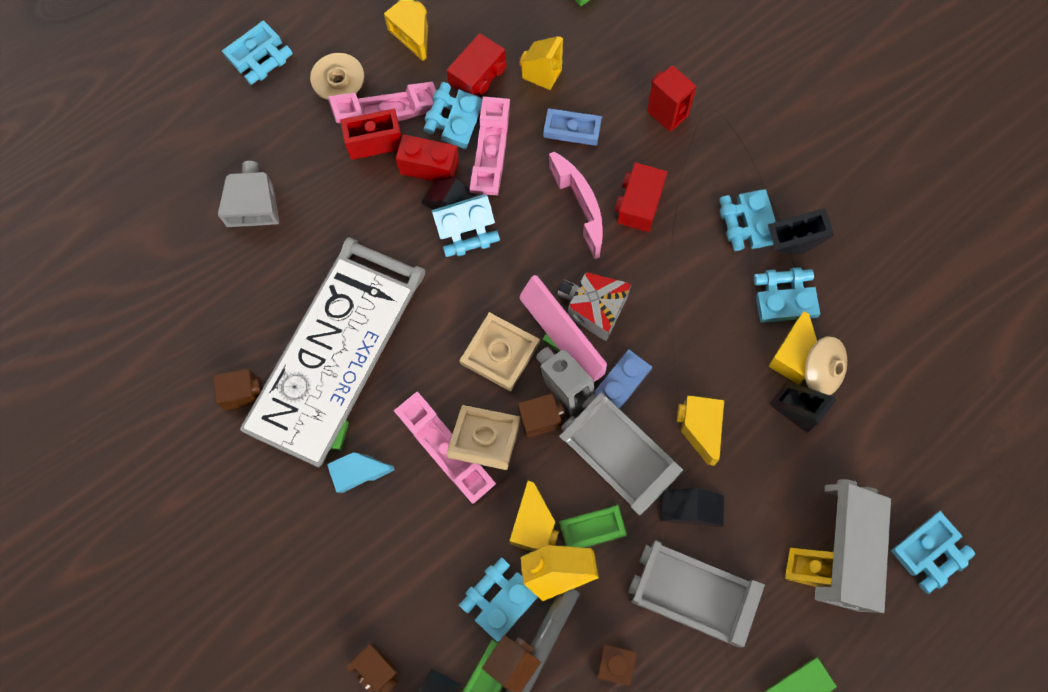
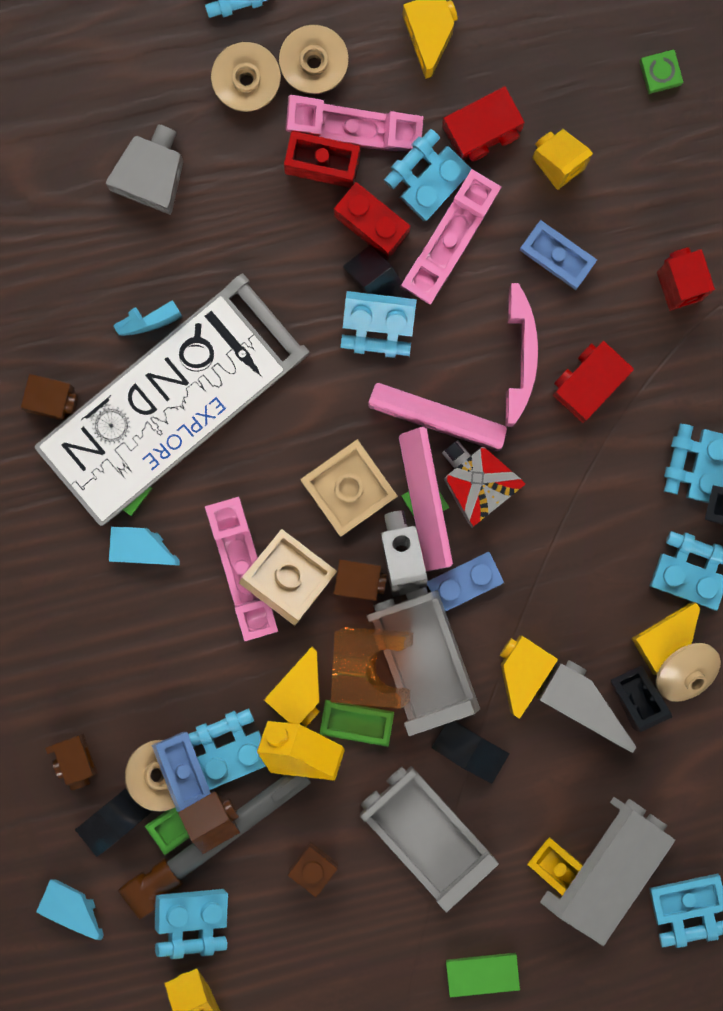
camera: 15 degrees right, 15 degrees up
(290, 99) = (243, 60): none -> tan dish
(296, 297) = (159, 318): none -> medium azure slope
(465, 639) = (139, 783): none -> tan dish
(468, 632) = (181, 770): none -> medium blue plate
(547, 273) = (437, 417): none -> bright pink slope
(568, 476) = (355, 668): none -> clear orange piece
(757, 427) = (580, 700): none -> light grey slope

